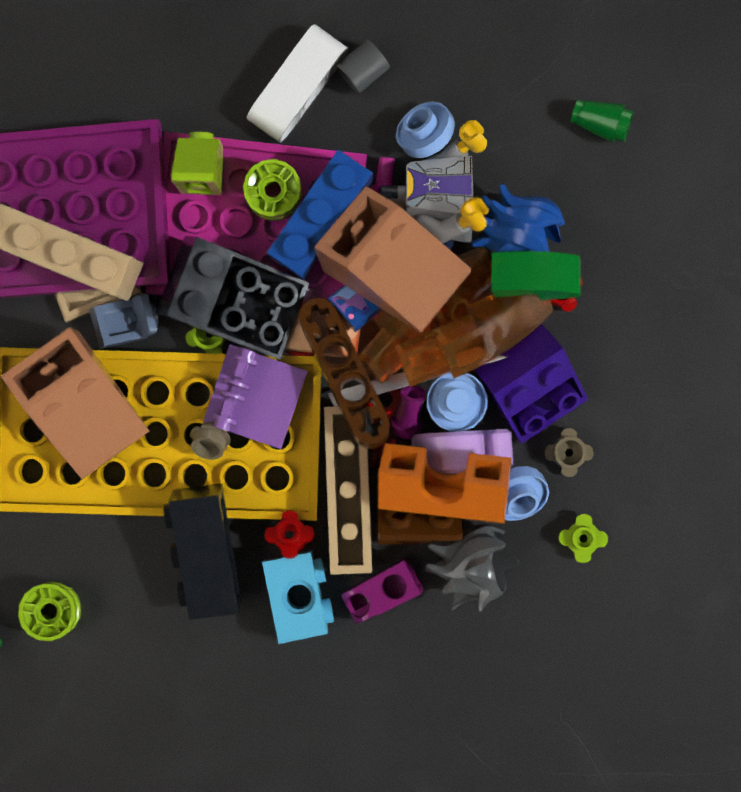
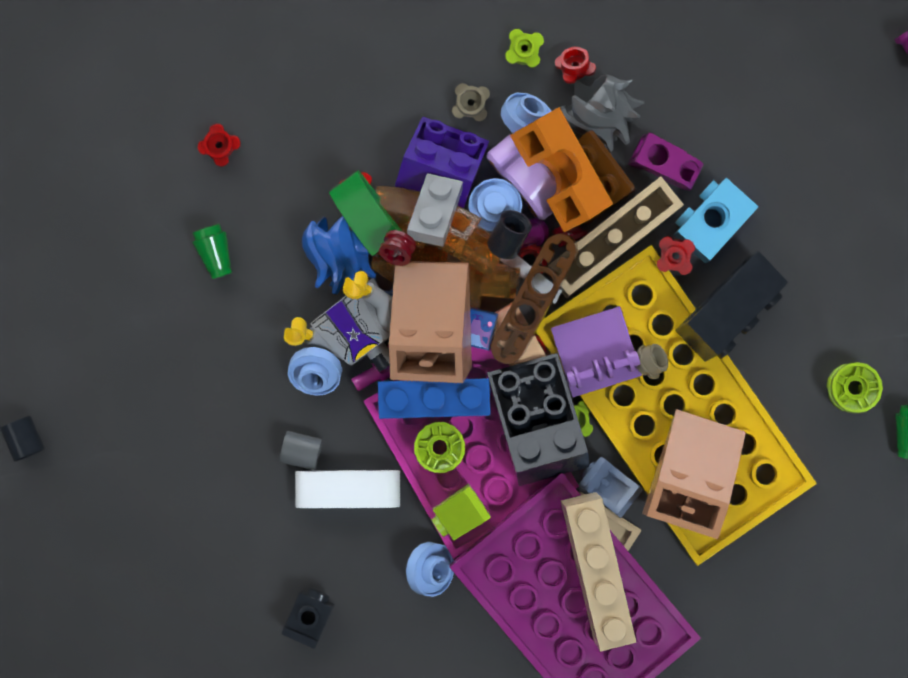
camera: 125 degrees left, 0 degrees up
(171, 102) = (429, 569): none -> light blue plate
(419, 391) = (509, 234): none -> black beam
(481, 277) = (397, 248): none -> dark red bush
(492, 338) = (435, 209): none -> light grey plate
(542, 577) = (575, 64): none -> red plate
(702, 184) = (216, 135): none -> red plate

